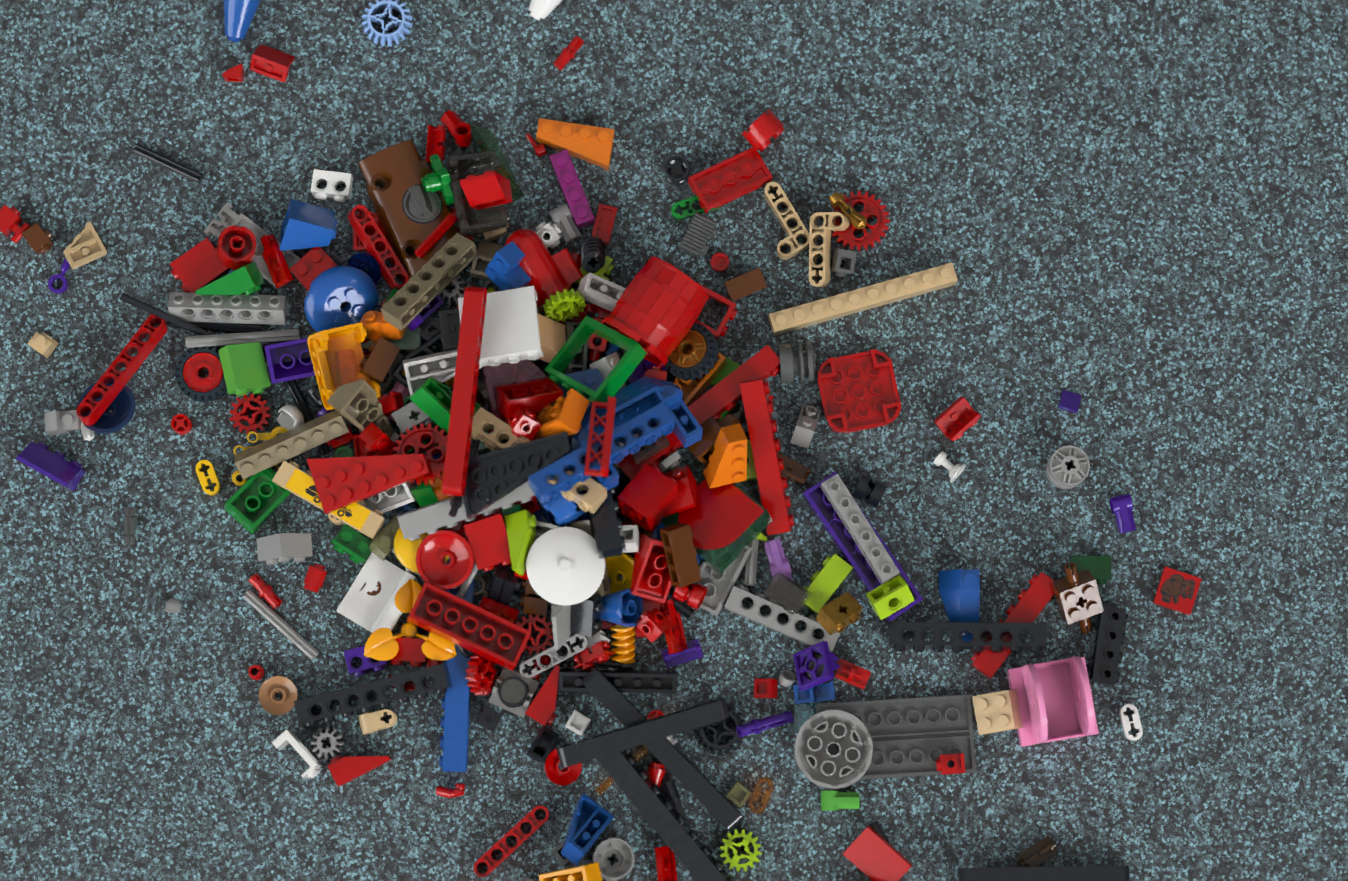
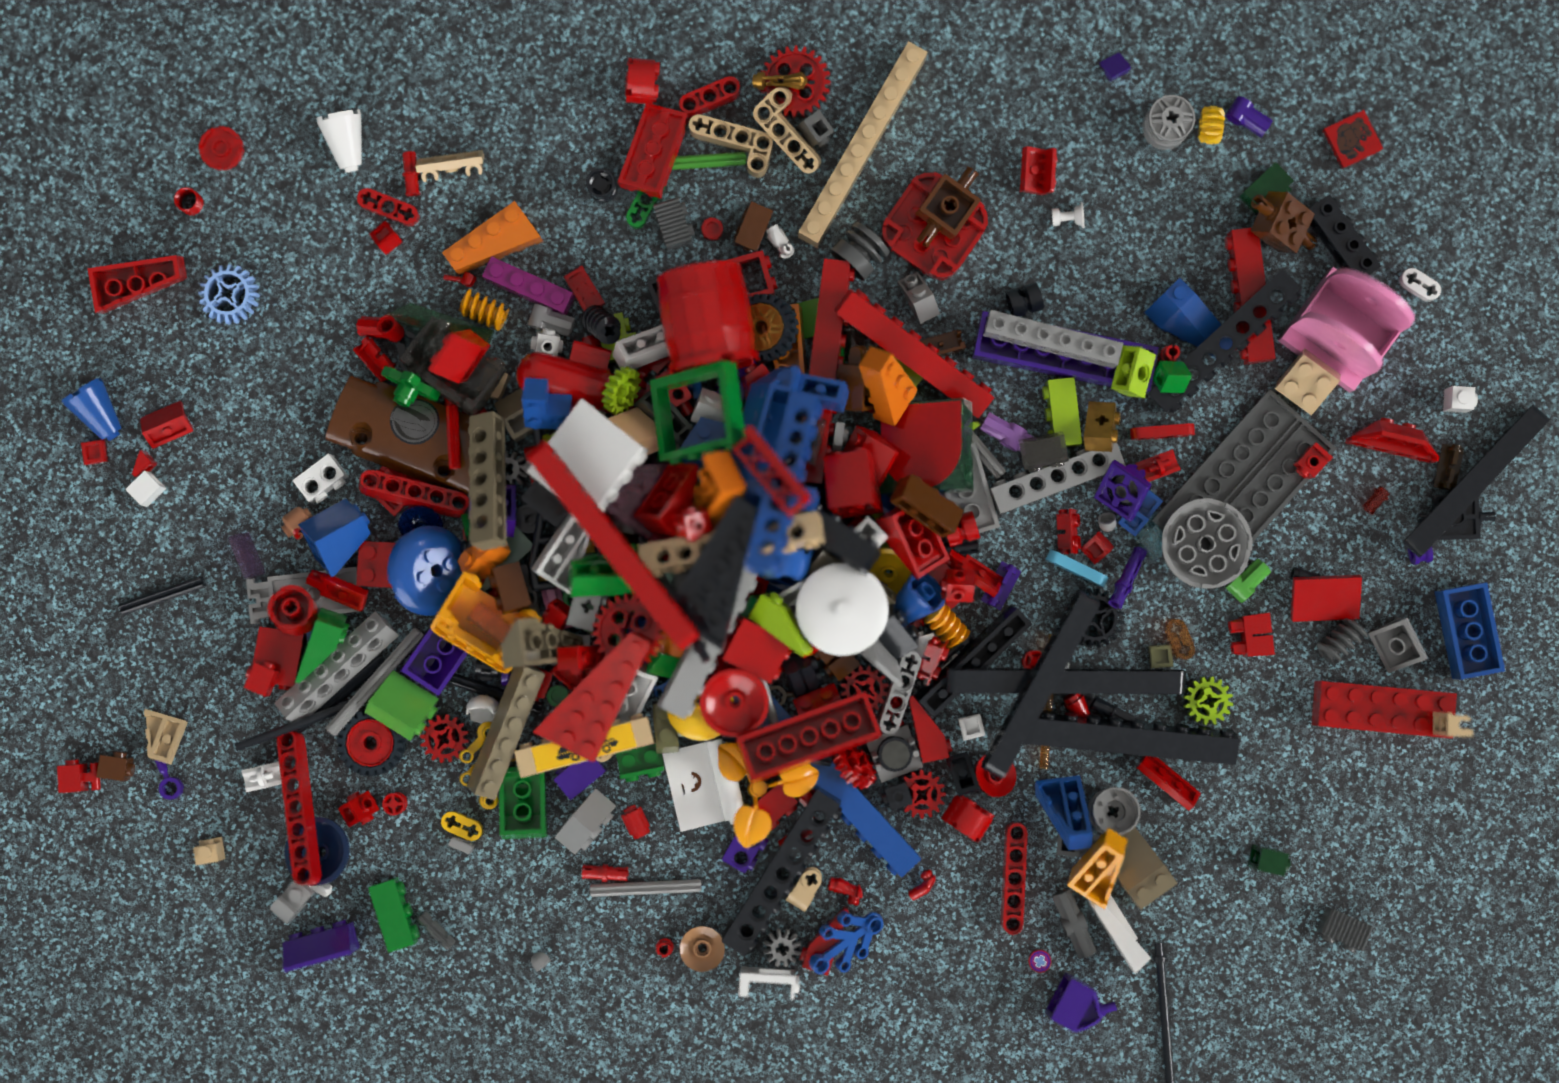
camera: 45 degrees left, 5 degrees up
(114, 490) = (394, 914): none -> green brick
(118, 329) = (262, 777): none -> white hips
(157, 405) = (359, 808): none -> red brick
(177, 269) = (261, 678): none -> red brick
(196, 488) = (461, 844): none -> light grey tile
(213, 38) = (94, 452): none -> red tile
(221, 89) = (145, 488): none -> white panel
(241, 188) = (246, 555): none -> clear purple slope
(289, 193) = (292, 520): none -> nougat head
(307, 515) = (578, 777): none -> dark purple piece
(372, 777) = (868, 925): none -> blue plant
(402, 746) = (843, 887): none -> red arm
(506, 742) = (929, 786): none -> red gear
(515, 77) = (385, 238): none -> red slope
(517, 774) = (967, 817): none -> red brick
(529, 177) = (483, 311): none -> light orange piece
(534, 45) = (405, 207): none -> red beam
(598, 69) = (450, 163): none -> tan plate
(739, 688) = (1077, 568): none -> medium azure beam
(752, 668) = (1069, 523): none -> red hinge
(753, 308) = (780, 241): none -> white arm
(759, 219) = (710, 160): none -> bright green axle
(802, 843) = (1247, 627): none -> red hips
(803, 187) = (715, 88): none -> red beam
(876, 655) = (1162, 431): none -> red beam
(882, 375) = (961, 203): none -> reddish brown brick
(912, 624) = (1172, 377): none -> green panel
(921, 610) = (1169, 353): none -> red pin
(970, 829) = (1375, 500): none -> clear red pin
(1019, 803) = (1395, 440): none -> red wedge
(1085, 817) = (1460, 399): none -> white brick
(1093, 494) = (1211, 125): none -> yellow gear

